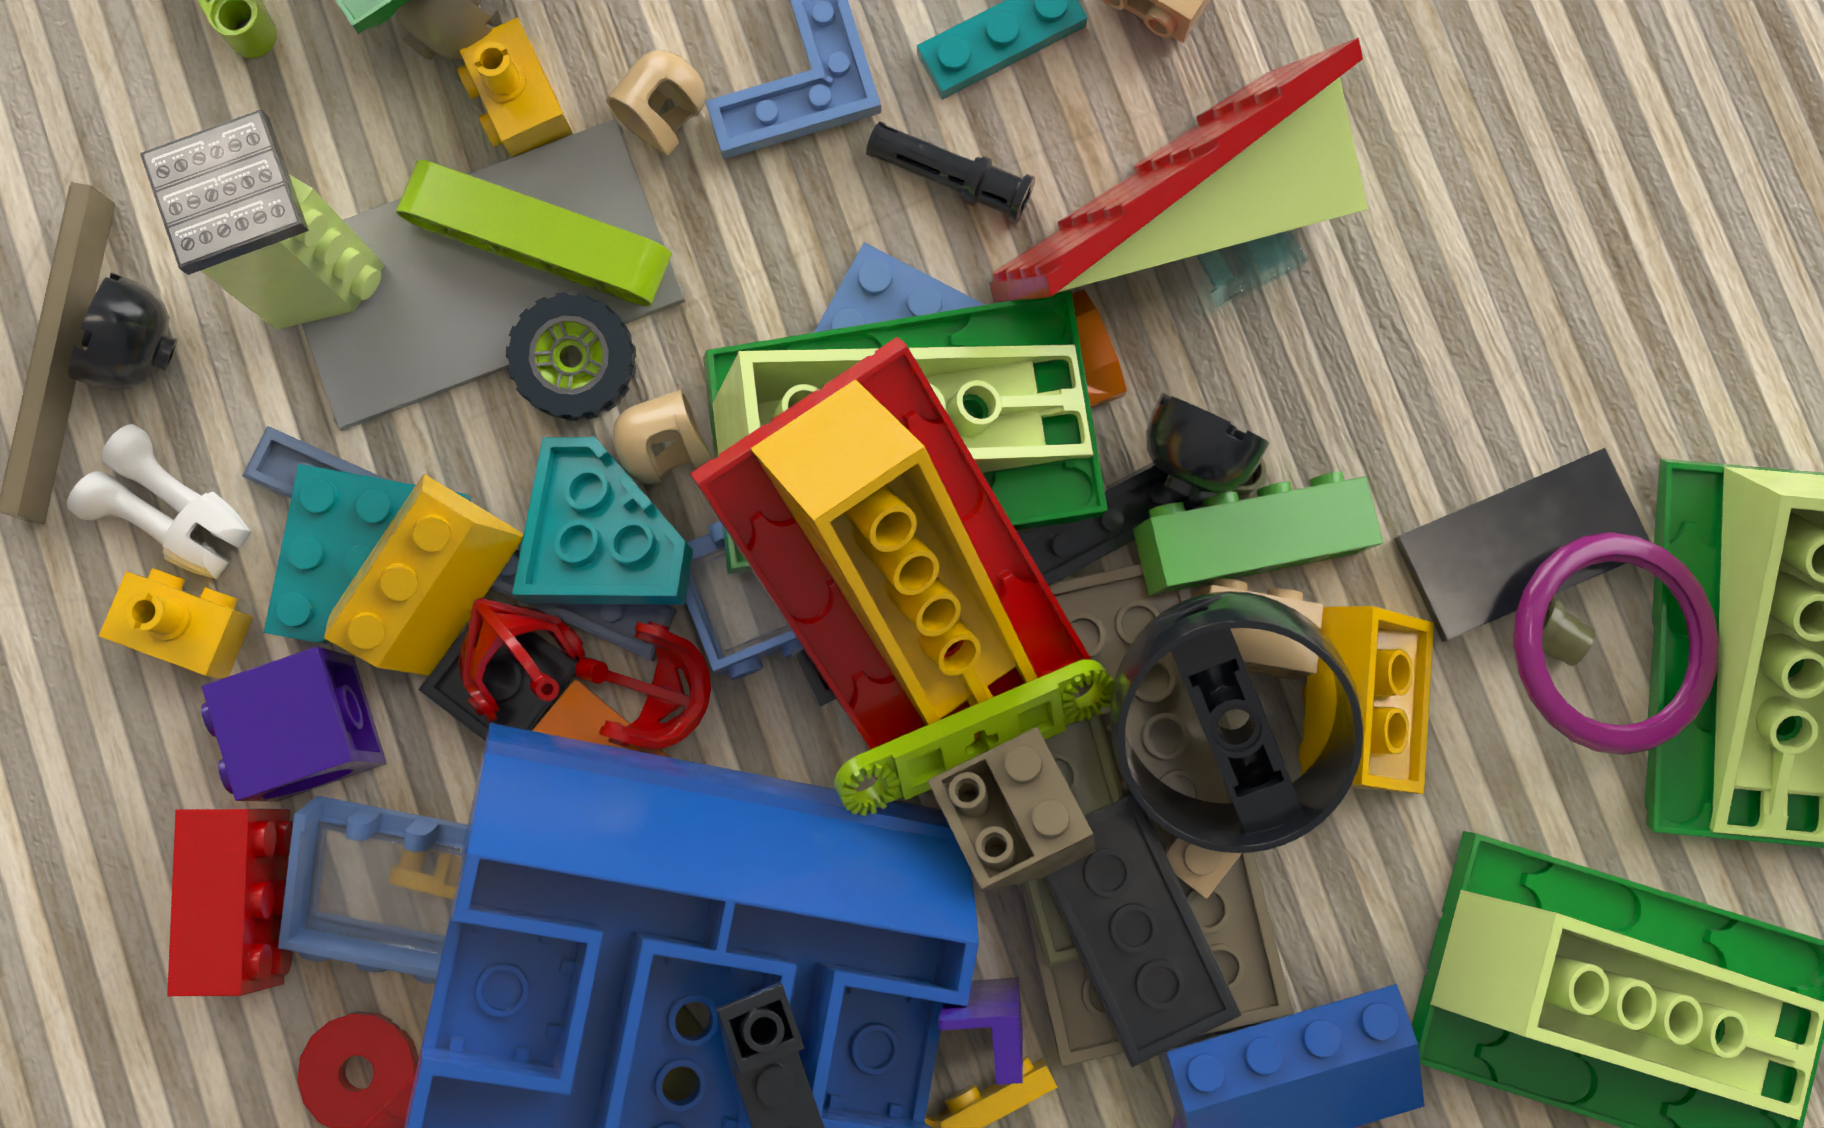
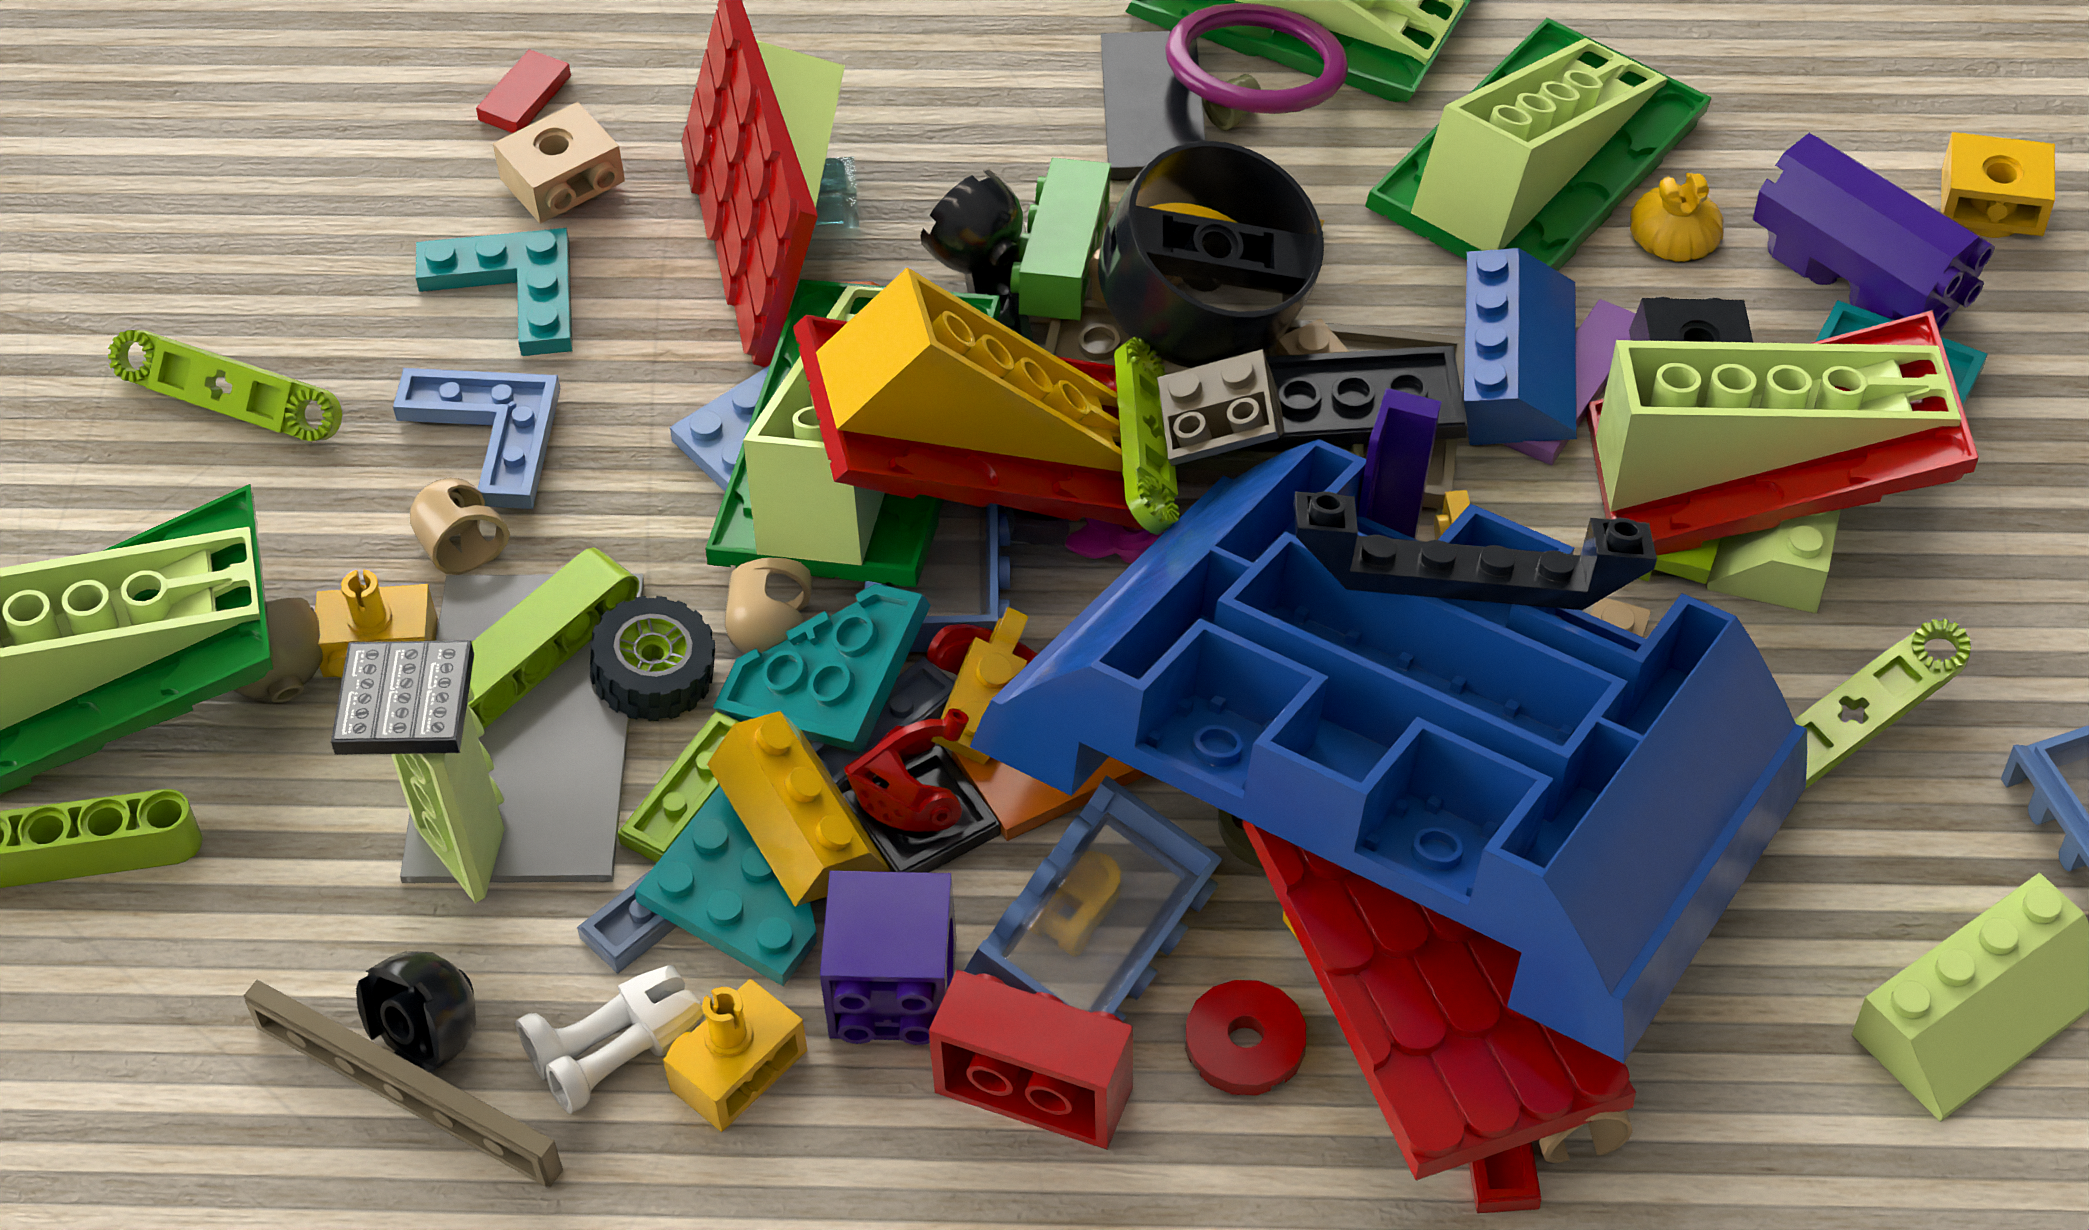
camera: 70 degrees left, 30 degrees down
(454, 456) = (677, 794): none -> lime tile
(627, 690) = (982, 676): none -> yellow plate
(974, 179) = (664, 342): black pin -> none

